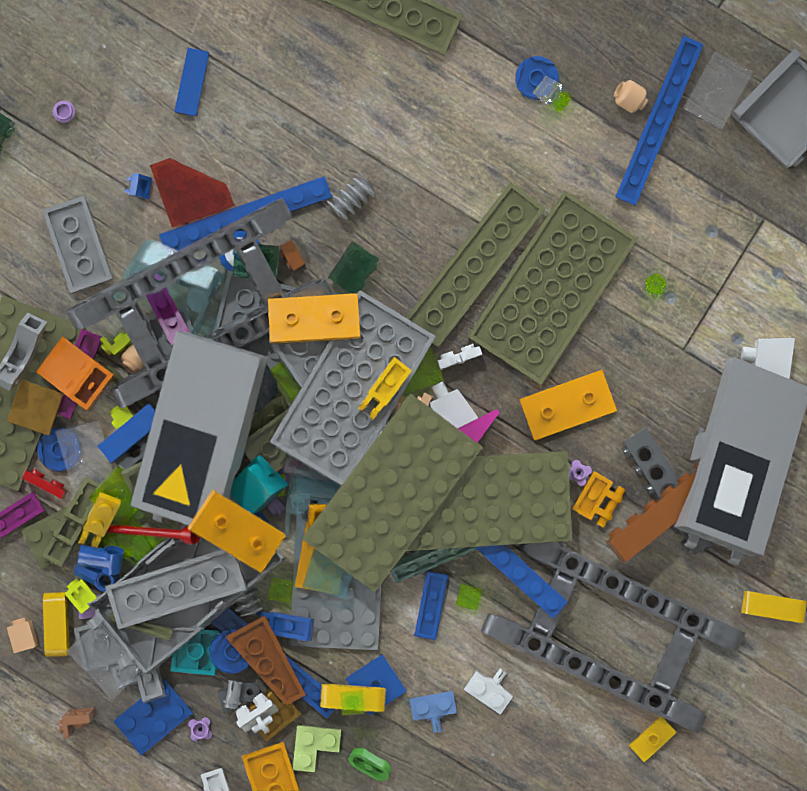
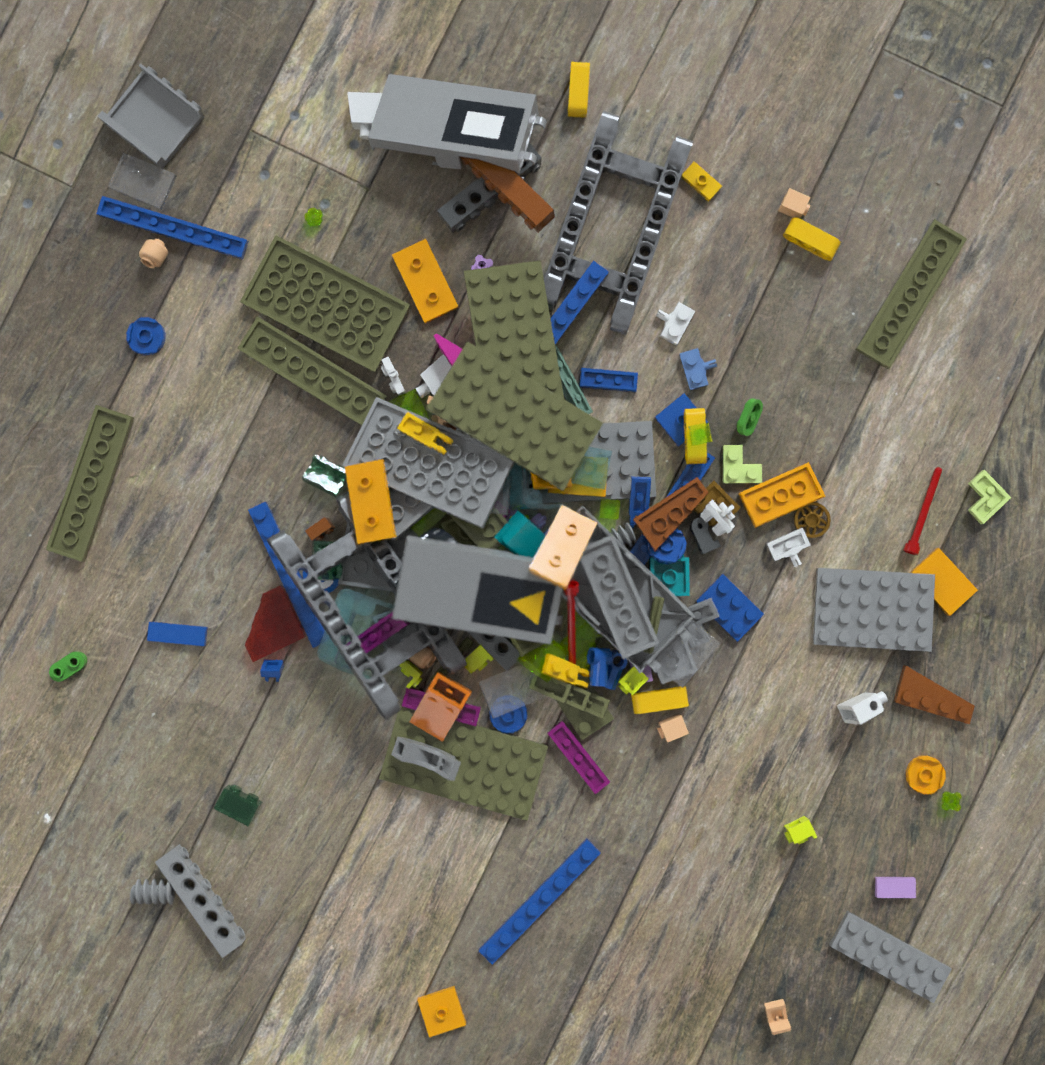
camera: 90 degrees left, 0 degrees up
(35, 407) = (473, 738): pearl gold tile -> none
(53, 487) = (541, 715): red plate -> none
(64, 111) = (213, 742): lavender plate -> none
(75, 719) = (738, 672): nougat bracket -> none
(77, 244) = (328, 718): light grey plate -> none
(128, 434) = (488, 653): blue tile -> none
(195, 733) = (741, 566): lavender plate -> none
(233, 694) = (703, 539): light grey pin -> none
(352, 197) = (263, 483): light grey piece -> none
(468, 596) = (597, 348): clear neon green plate -> none
(548, 90) = (154, 323): clear tile -> none
(565, 97) = (161, 310): clear neon green plate -> none
(592, 496) = (500, 251): light orange plate -> none

